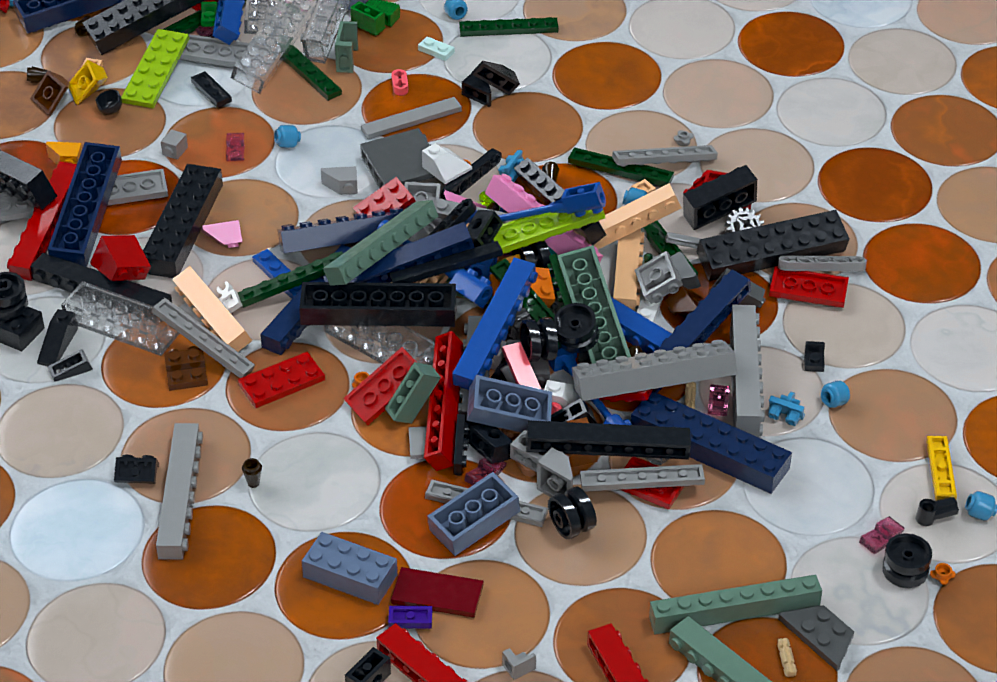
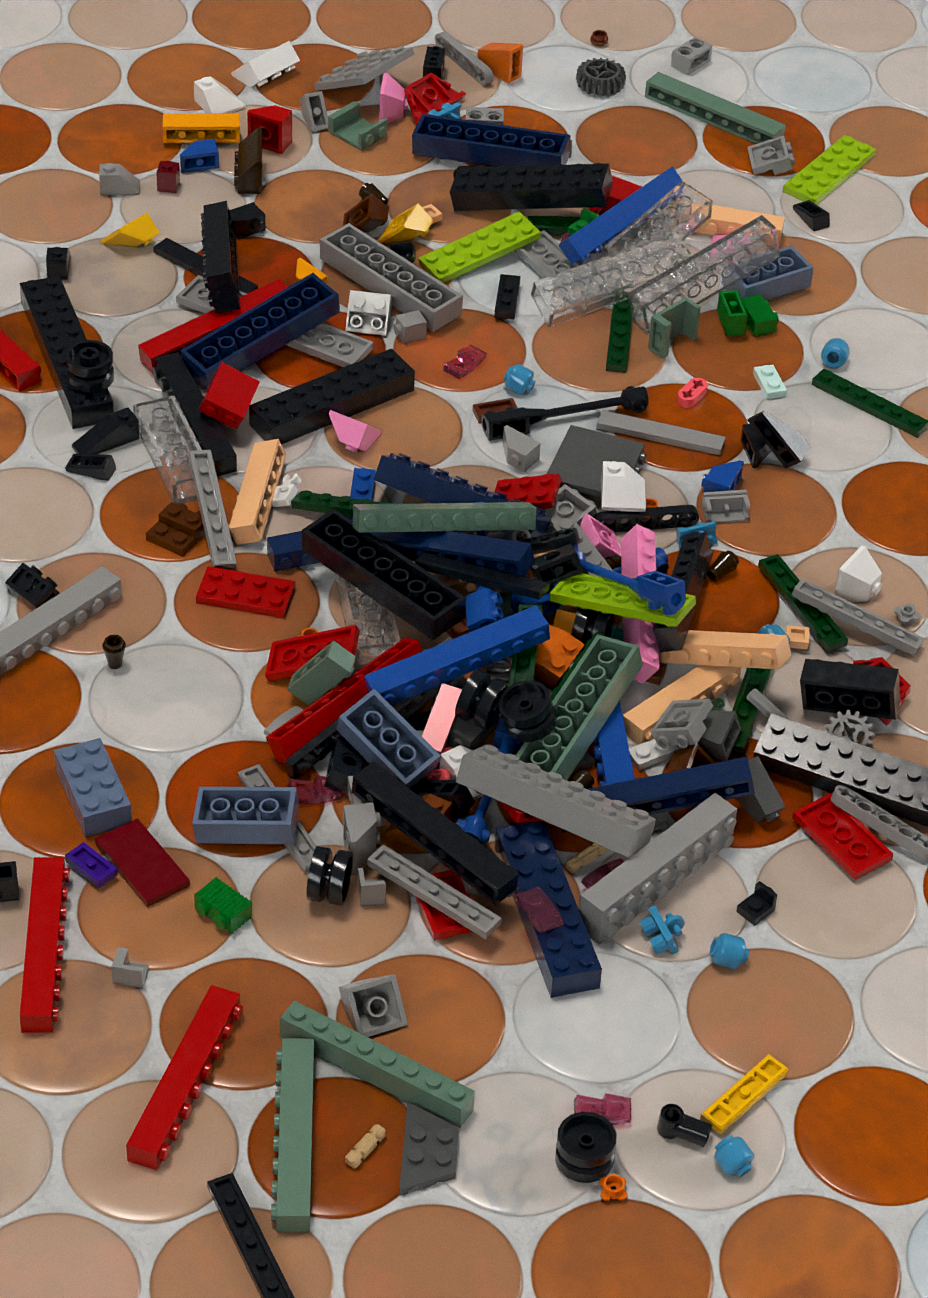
camera: 40 degrees right, 0 degrees up
(120, 119) = (389, 273): none -> light grey brick
(137, 151) = (368, 313): none -> white slope
(293, 165) = (498, 405): none -> copper tile
(310, 171) = (522, 418): none -> black bar
(488, 124) = (723, 477): none -> blue slope
(508, 138) = (726, 506): none -> light grey hinge
(525, 580) = (223, 905): none -> green brick
(601, 505) = (370, 890): none -> light grey panel
(638, 131) = (858, 577): none -> white slope
(688, 571) = (374, 1005): none -> light grey slope
(727, 441) = (540, 909): none -> clear pink slope

